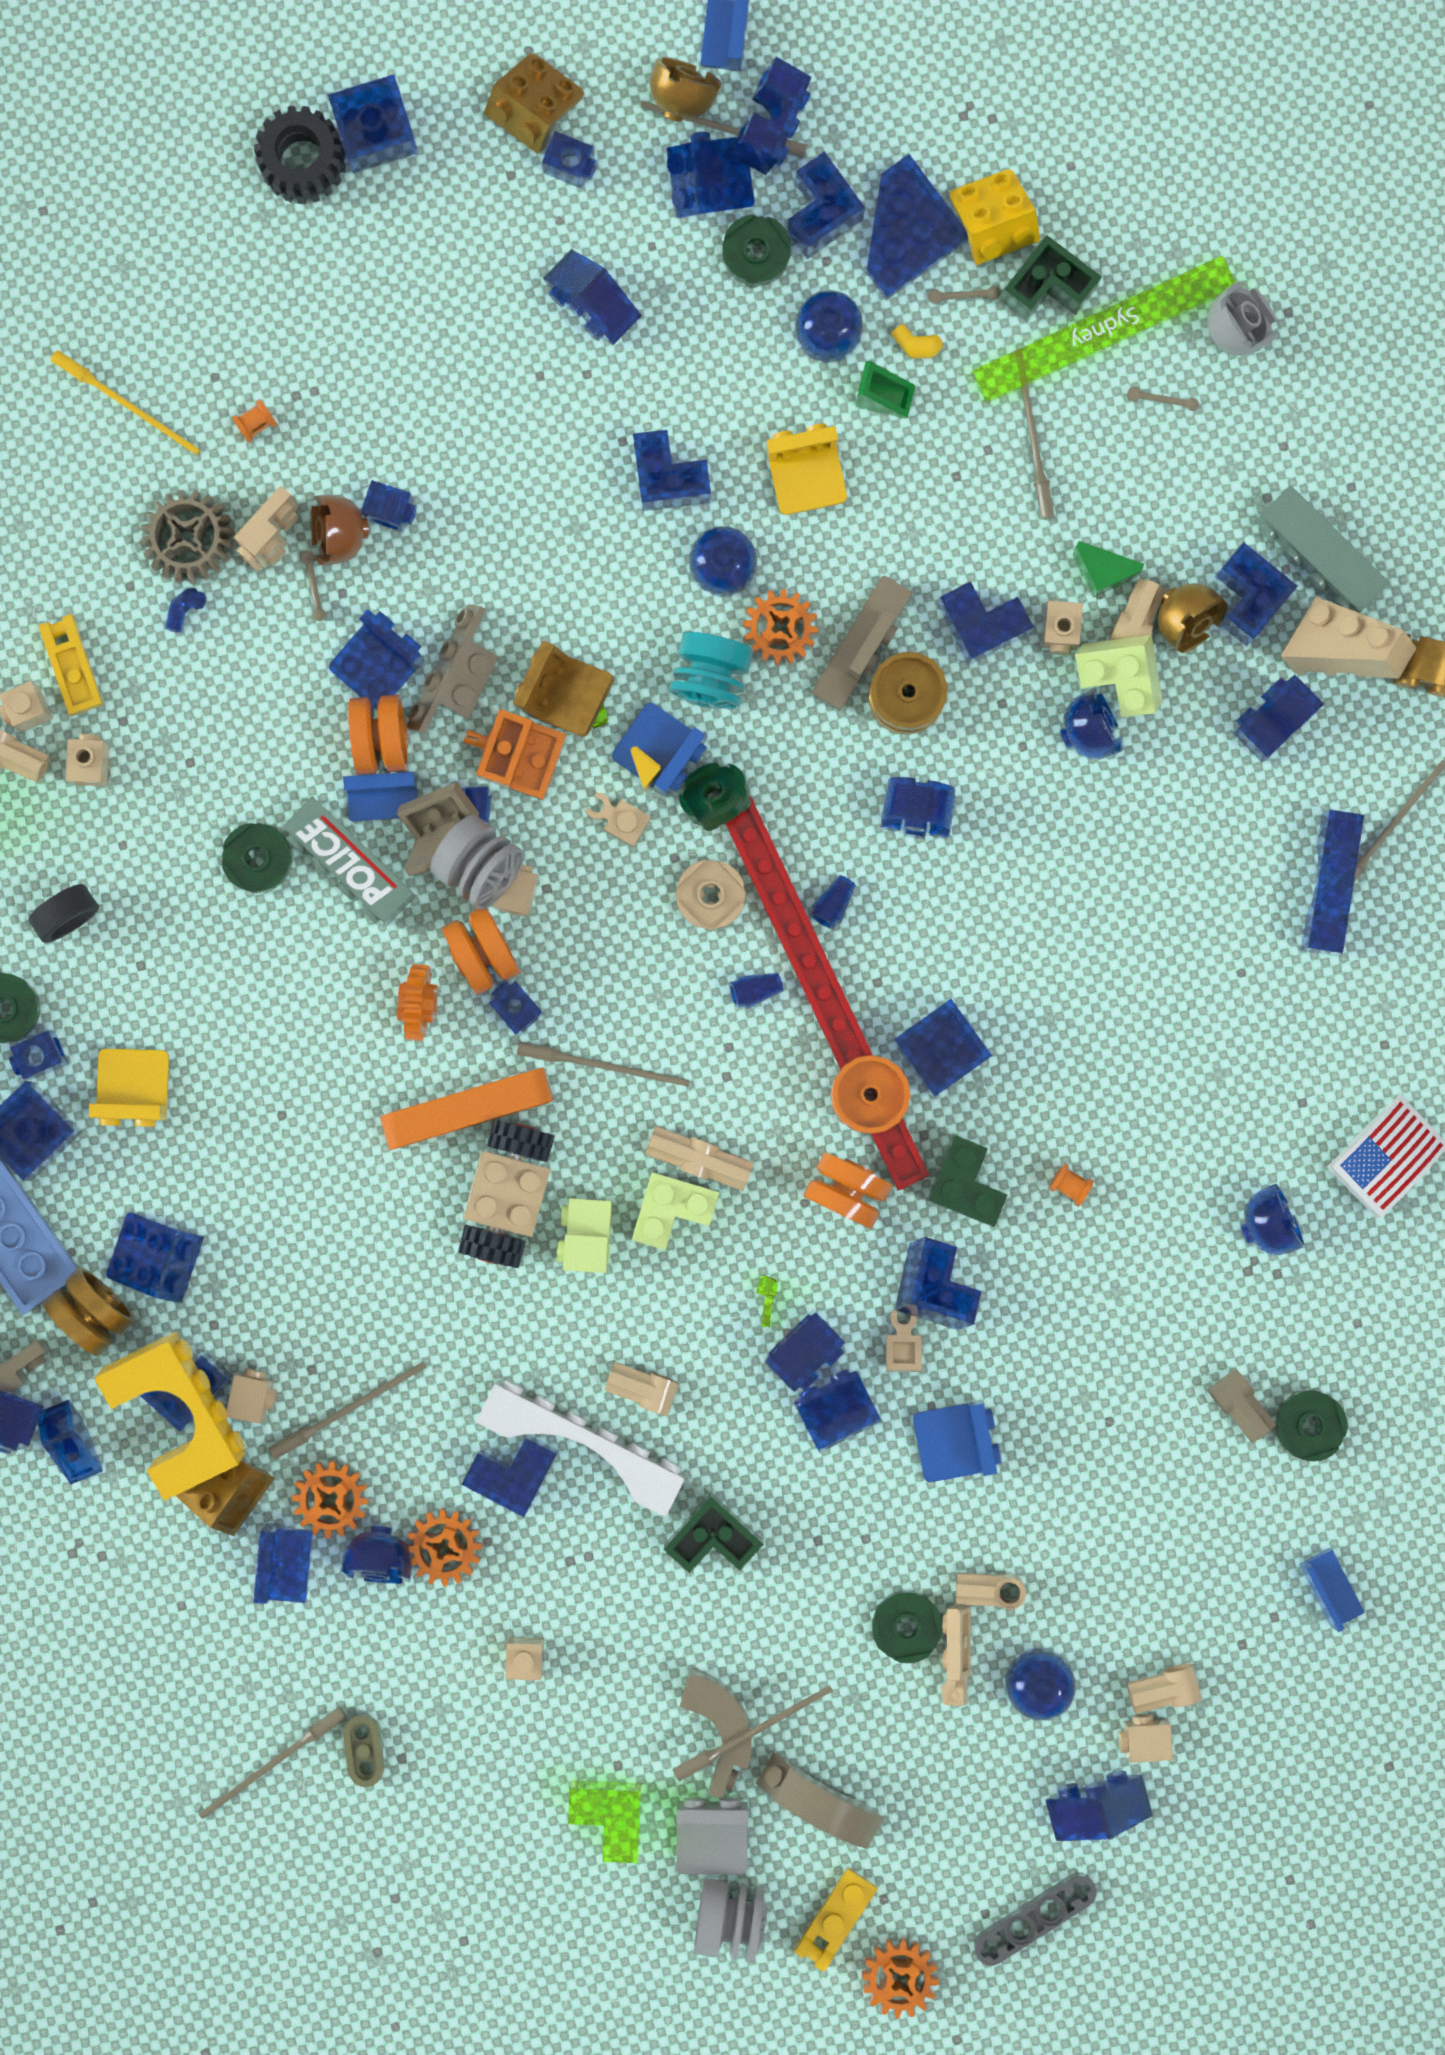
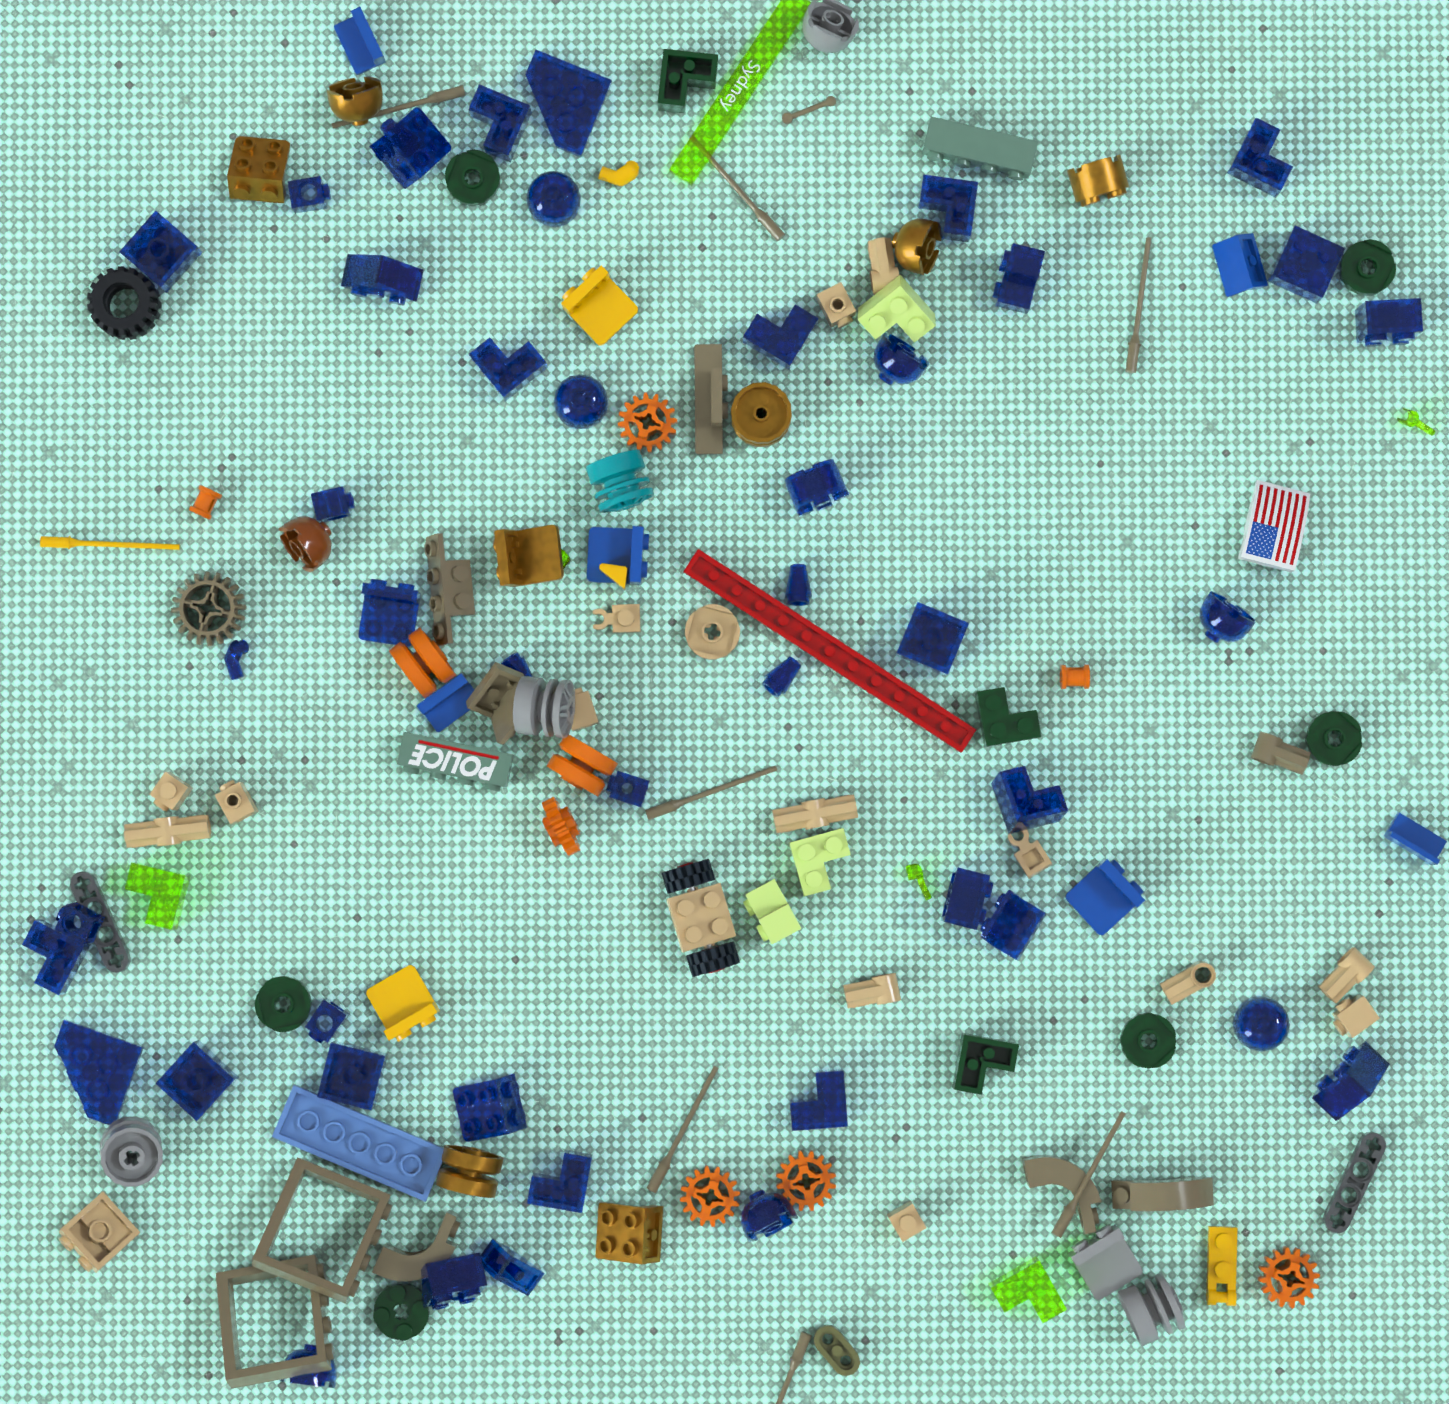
camera: 30 degrees left, 0 degrees up
(63, 913) = (284, 914): black tyre -> none
(71, 666) = (184, 744): yellow plate -> none
(170, 1368) = (549, 1173): yellow arch -> none
(251, 1396) = (613, 1160): tan brick -> none
(261, 536) = (261, 579): tan plate -> none
(276, 861) = (405, 789): dark green plate -> none
(282, 1564) = (706, 1258): clear blue bracket -> none
(308, 559) = (298, 572): dark tan hinge -> none
(466, 1108) = (637, 877): orange beam -> none
(515, 1414) = (798, 1062): white arch -> none
(518, 754) = (524, 617): orange plate -> none
(719, 810) = (683, 572): dark green plate -> none
(783, 94) = (426, 61): clear blue arch -> none
(849, 1187) = (927, 770): orange wheel -> none
(884, 392) = (619, 220): green slope -> none
(889, 1085) = (913, 686): orange wheel -> none
(936, 296) = (612, 134): dark tan hinge -> none
(957, 1655) = (1193, 1038): tan hinge -> none
(996, 215) = (619, 55): yellow bracket -> none
(1103, 568) = (840, 249): green slope -> none
(1331, 902) = (1126, 367): clear blue arch -> none
(1347, 642) = (1032, 199): tan wedge -> none

